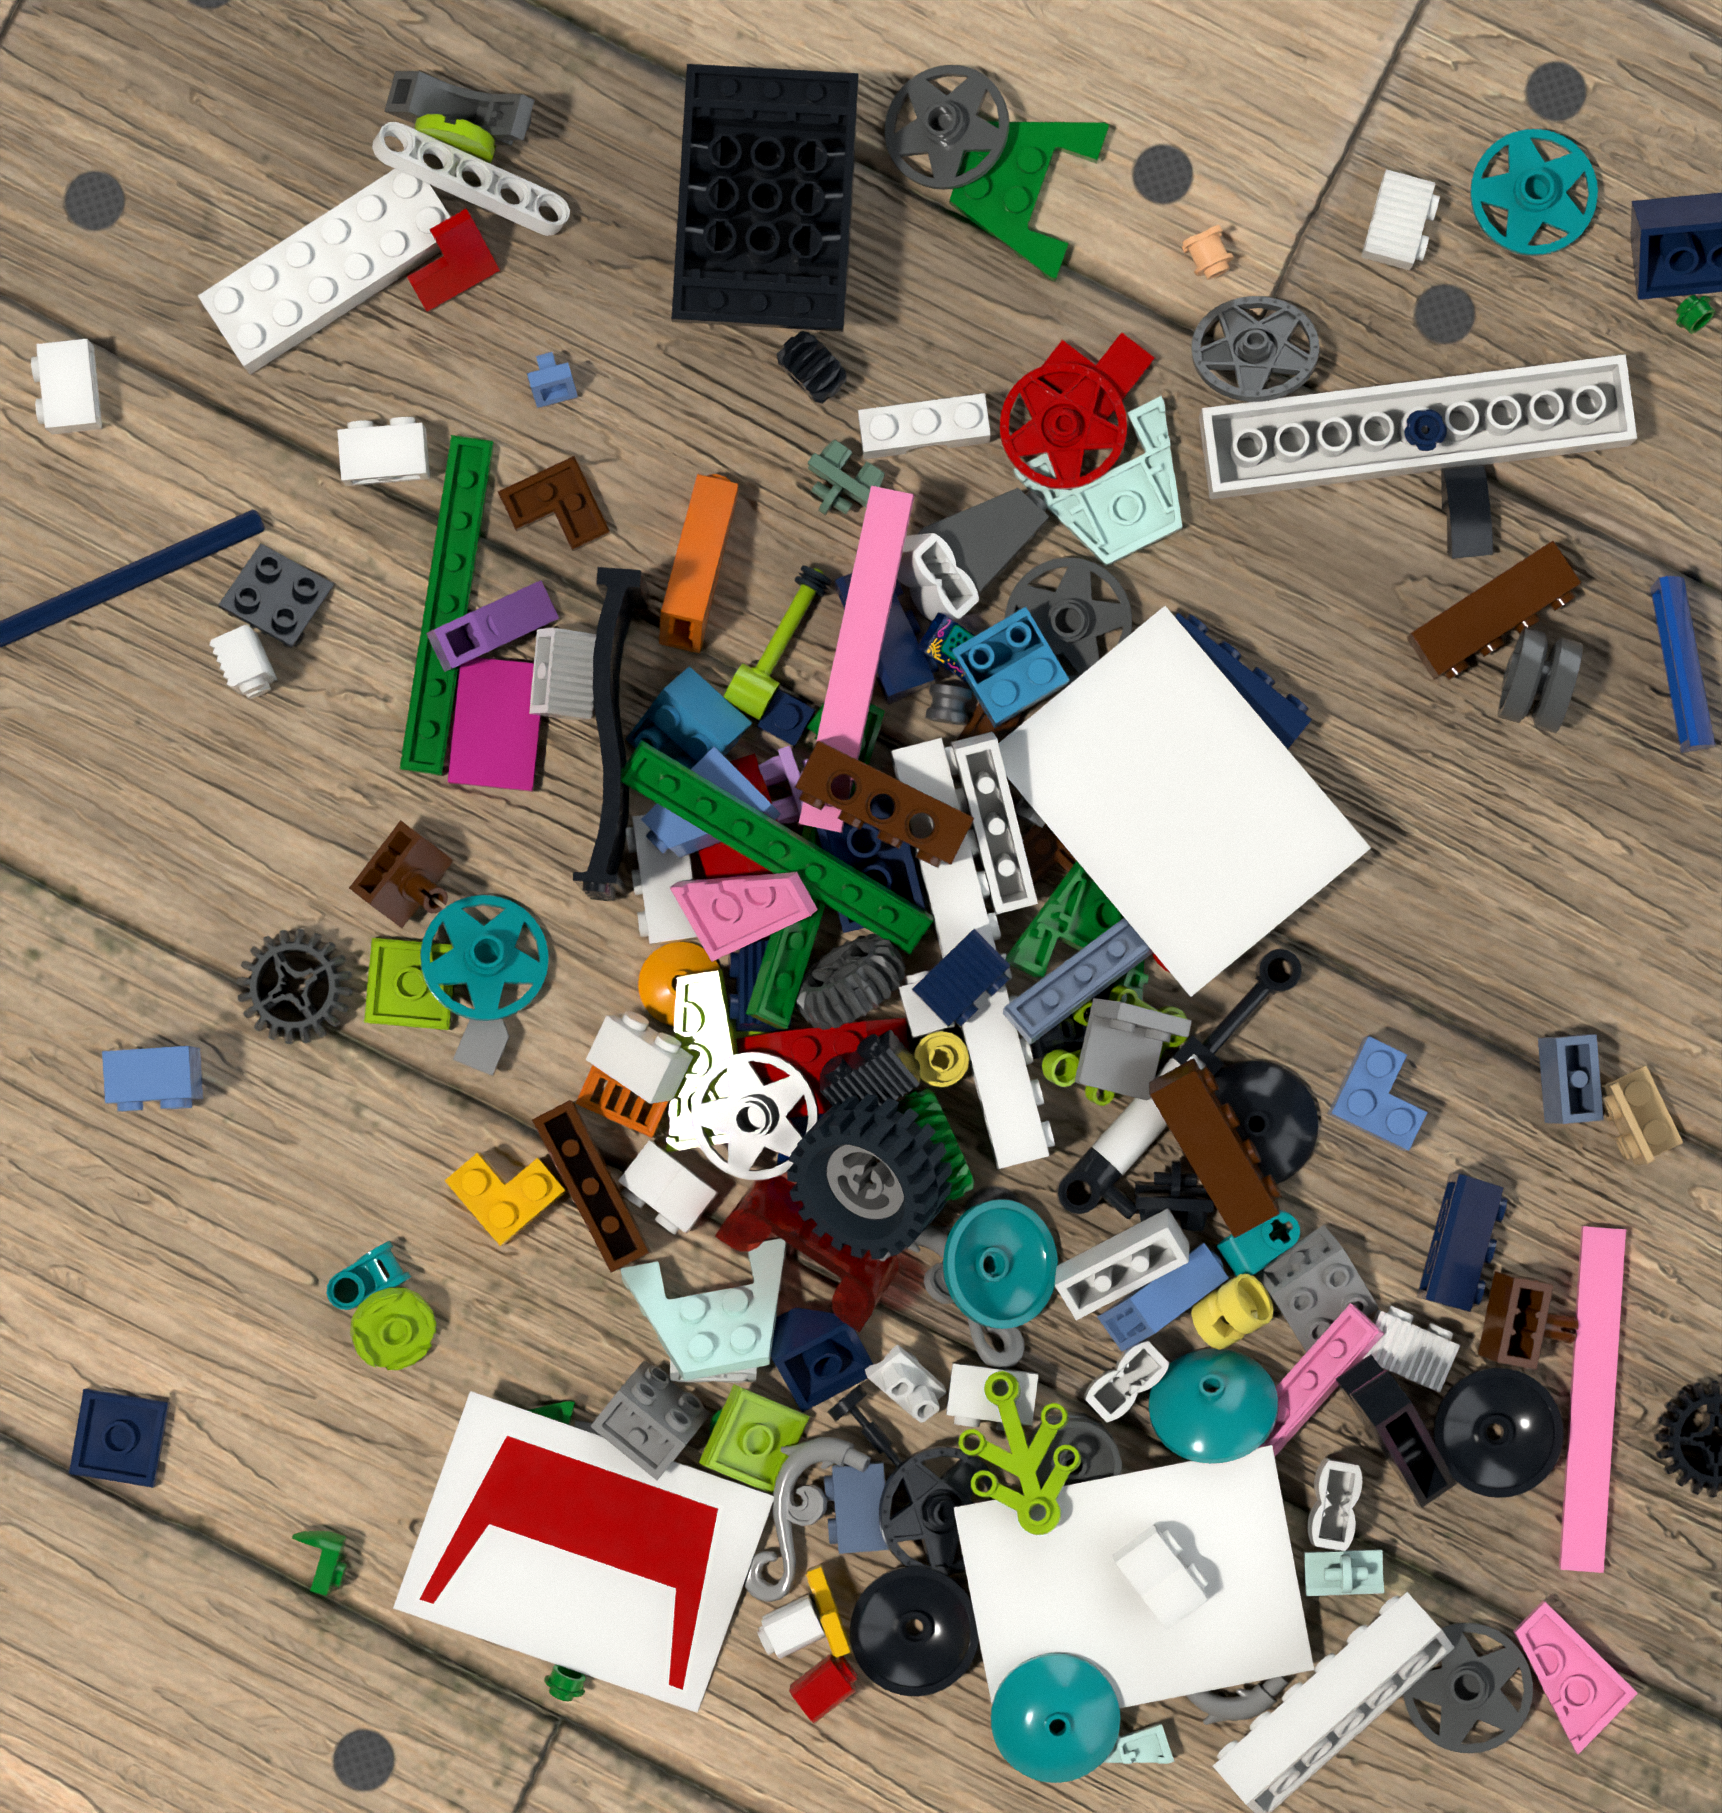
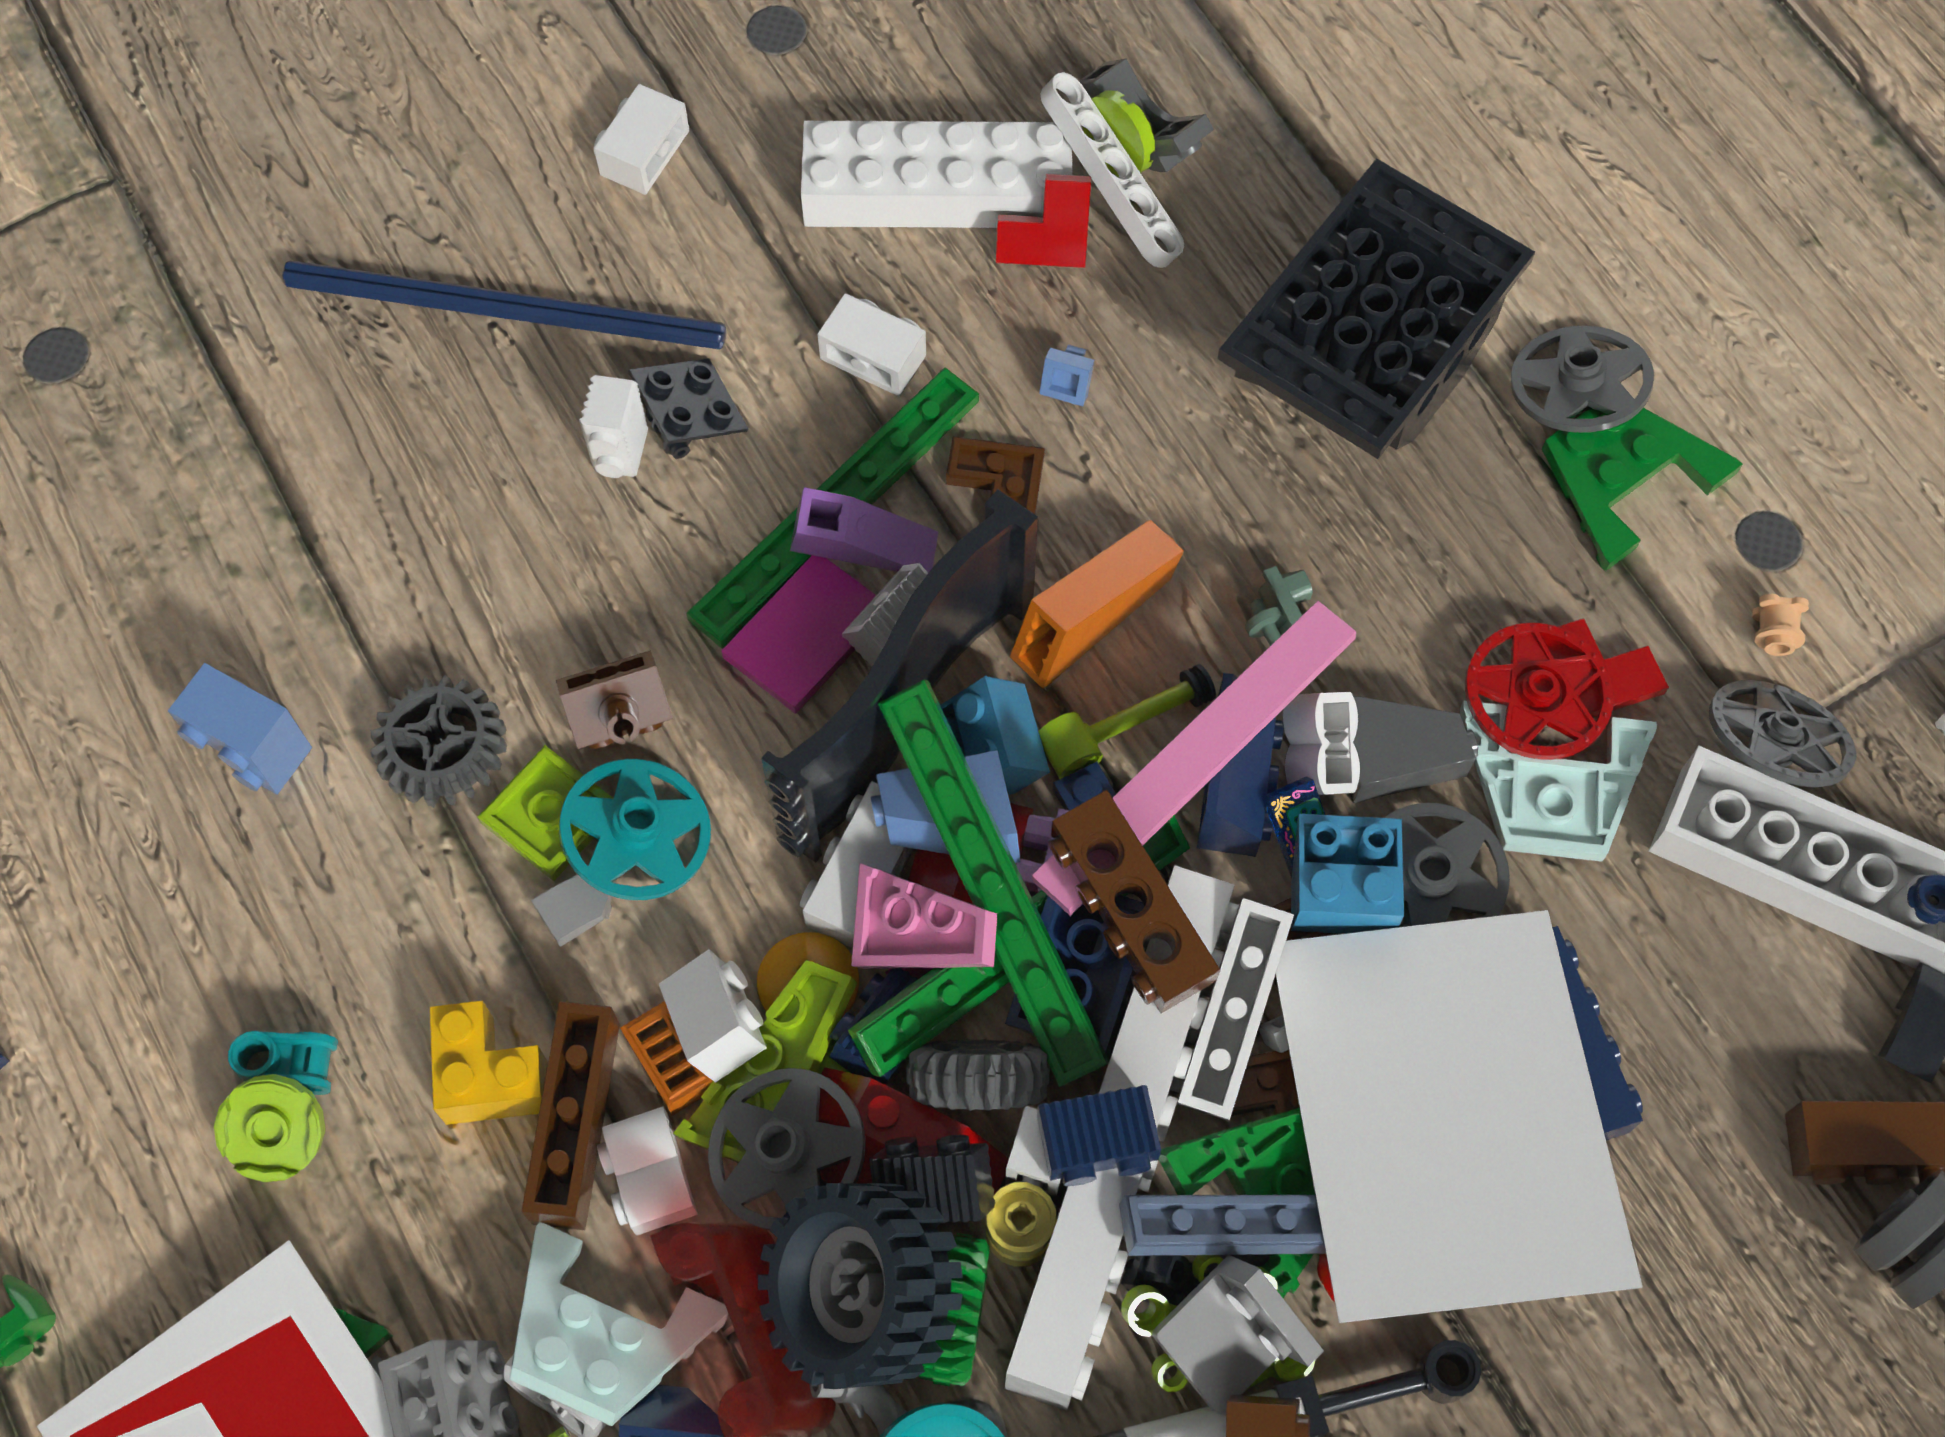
camera: 30 degrees right, 20 degrees down
(811, 366) = (1322, 495): black gear -> none
(926, 423) = (1427, 617): white arch -> none
(948, 704) = (1259, 876): flat silver wheel -> none

